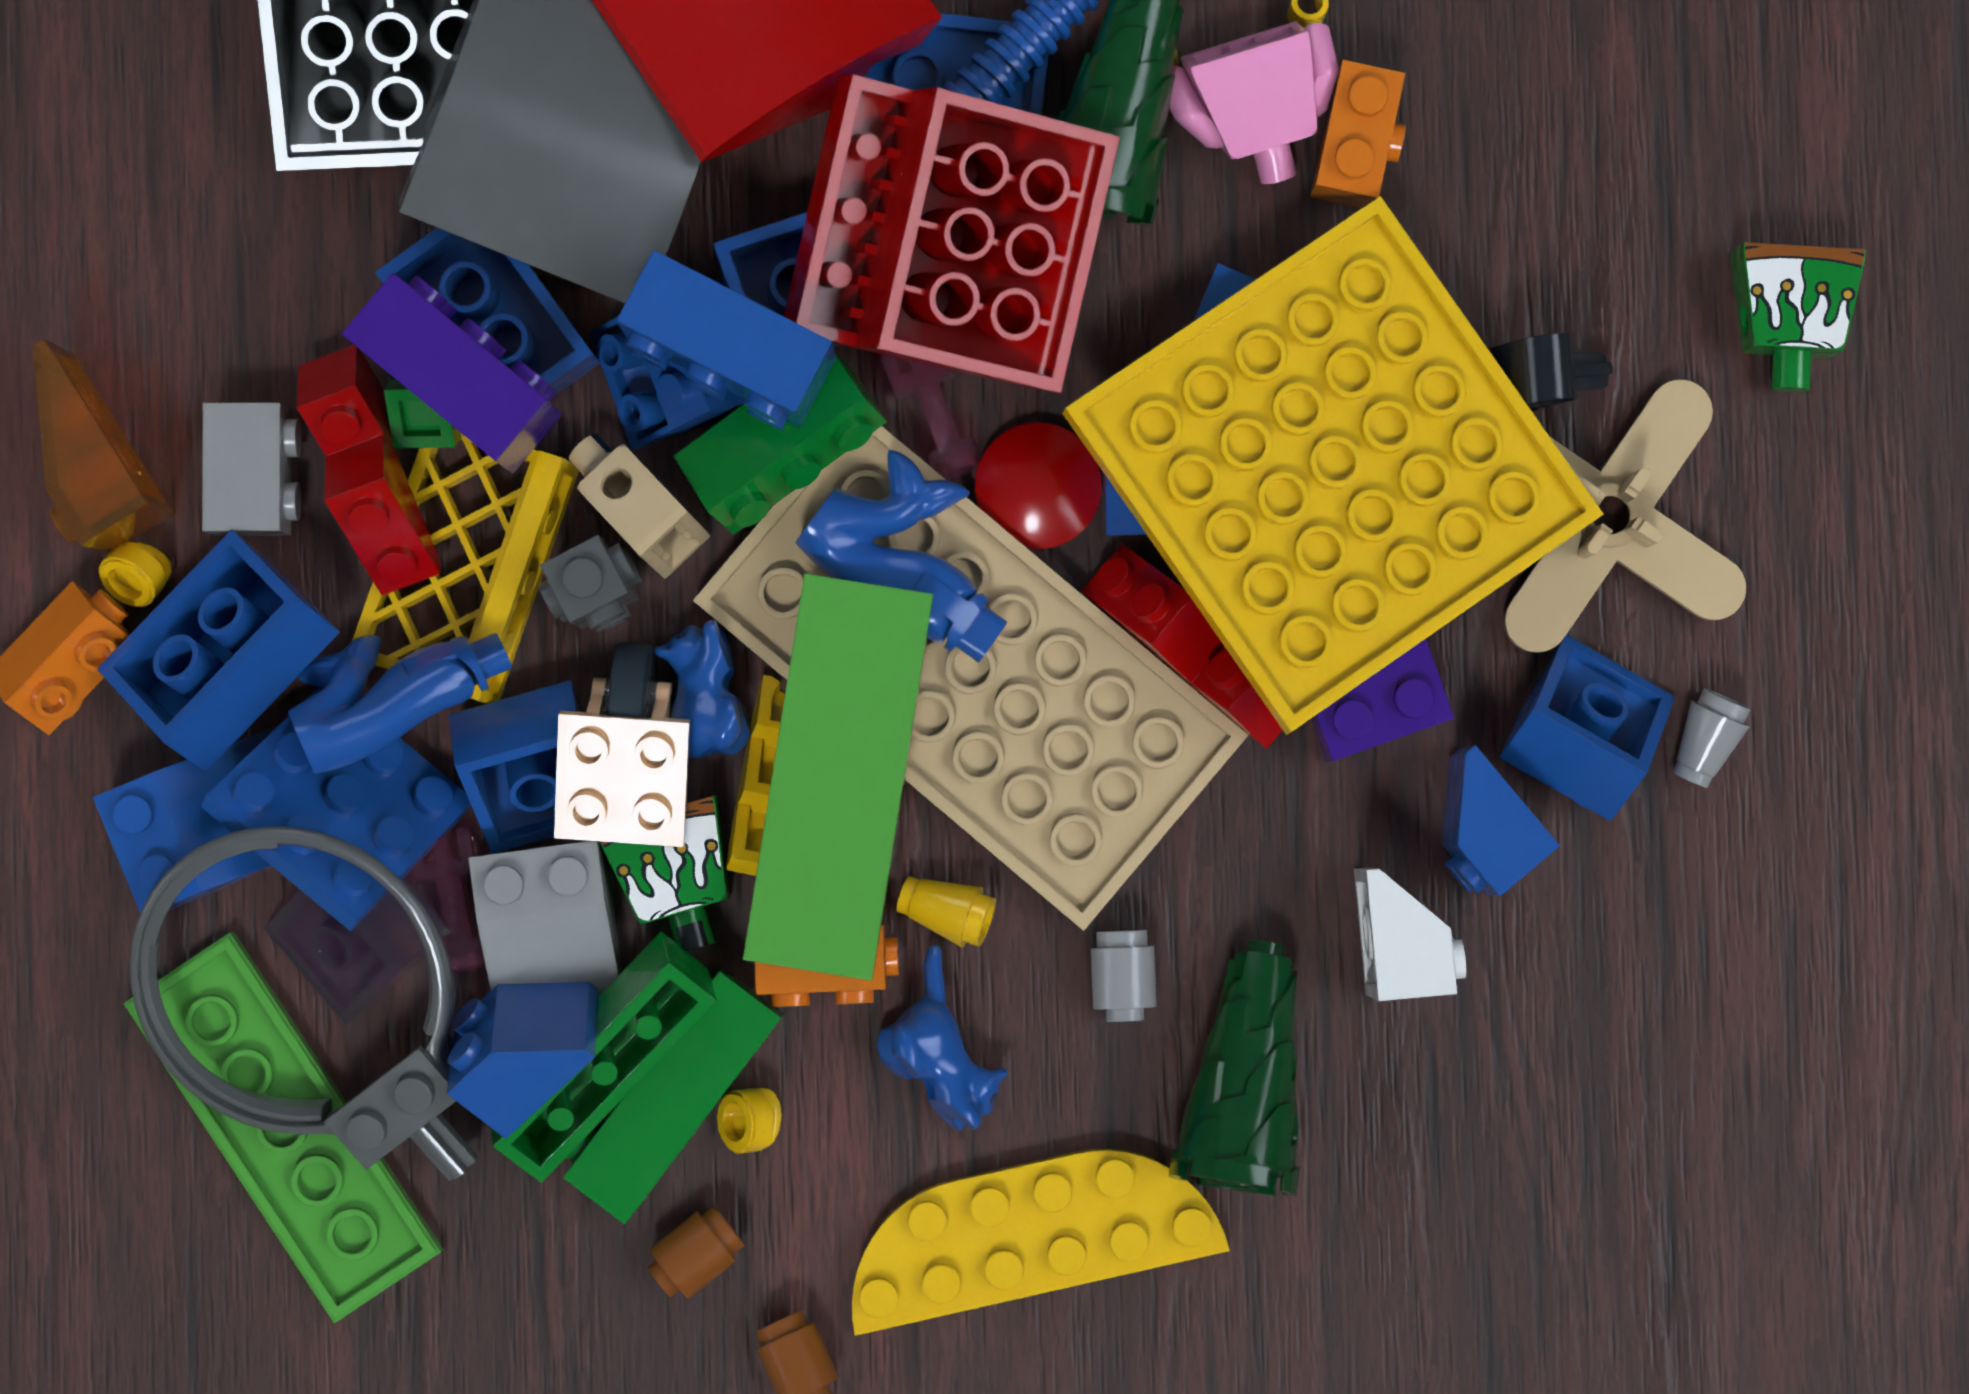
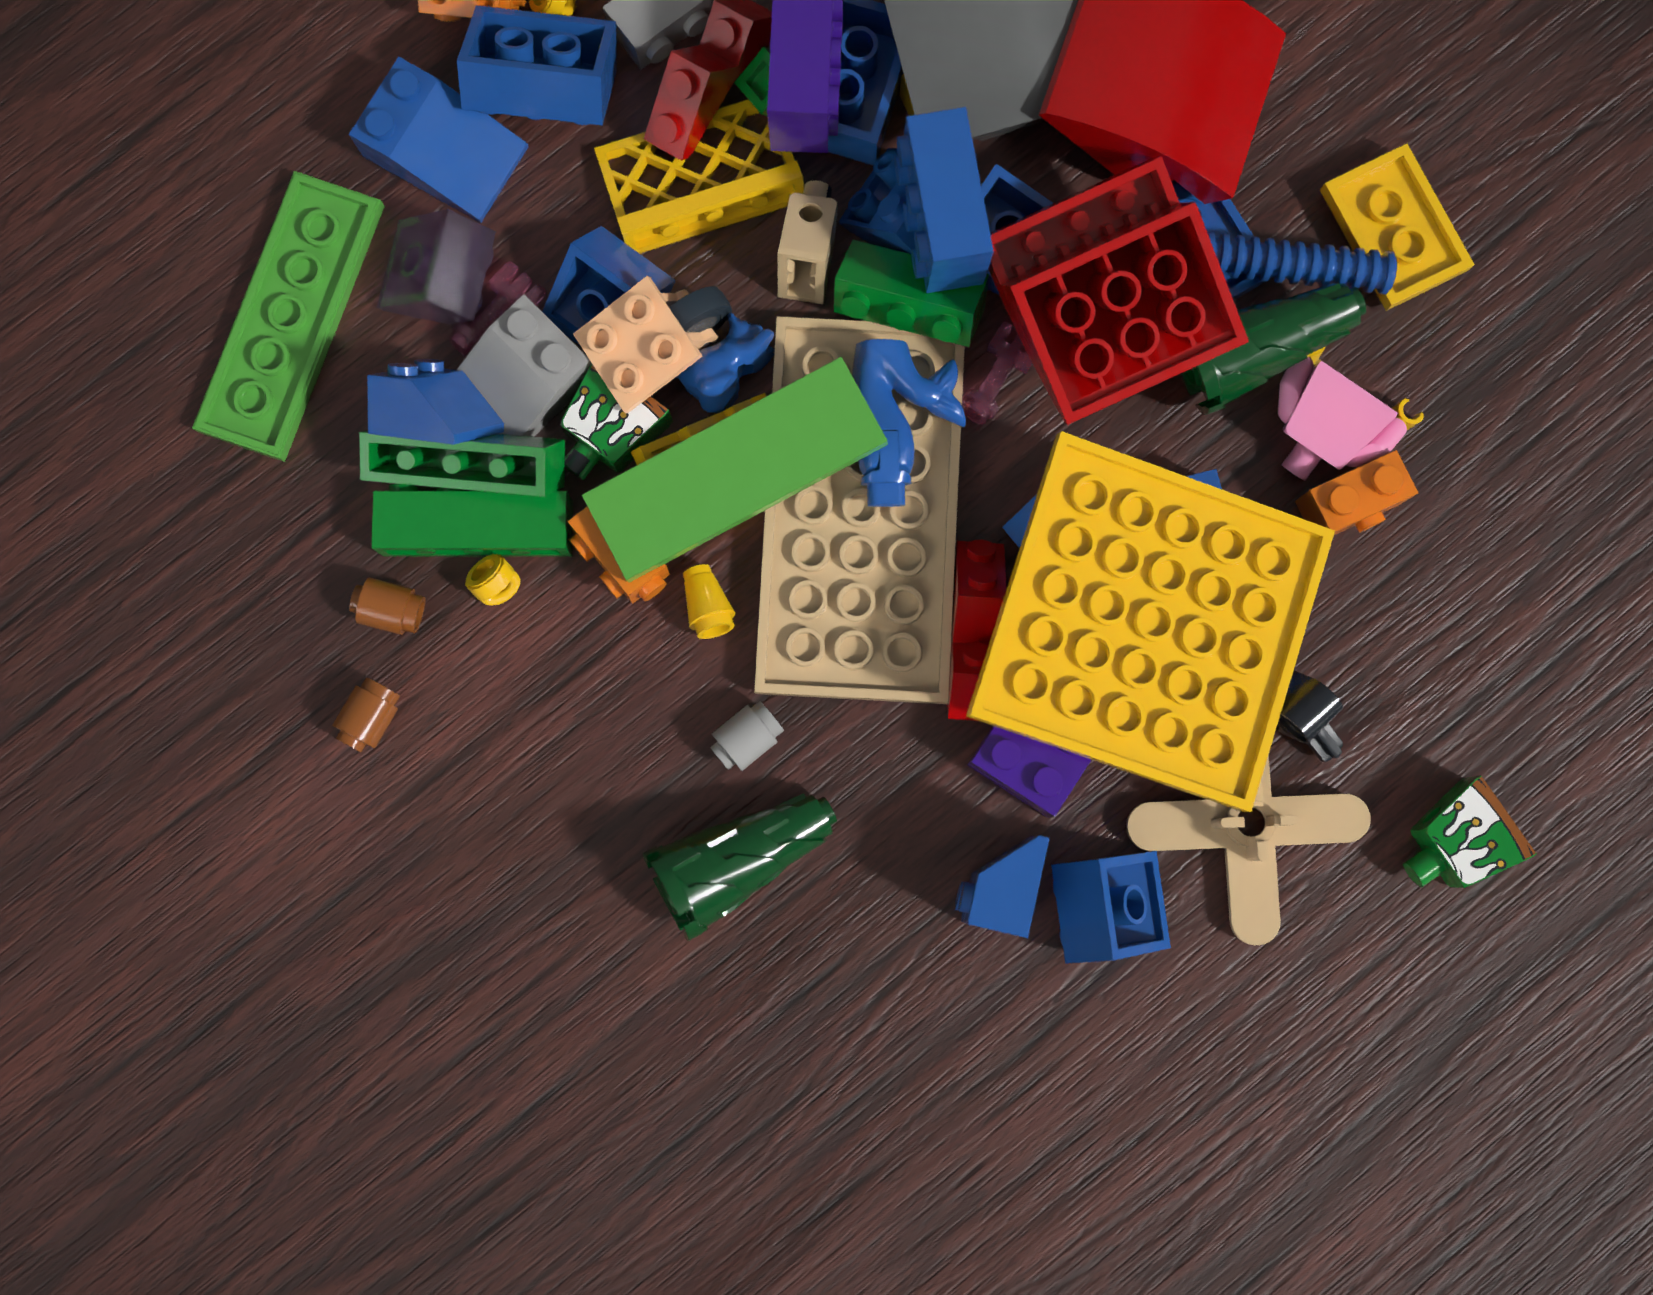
camera: 50 degrees right, 5 degrees down
(346, 726) = (574, 168): blue piece -> none
(383, 804) = (498, 197): blue plate -> none
(385, 1113) = (341, 356): dark grey brick -> none
(591, 585) = (740, 246): dark grey brick -> none
(930, 1048) = (614, 654): blue animal -> none
(1029, 1235) = (546, 800): yellow plate -> none
(1039, 484) = (1000, 468): red dish -> none
(1403, 943) = (895, 890): white slope -> none
(1710, 736) = (1163, 987): light grey cone -> none

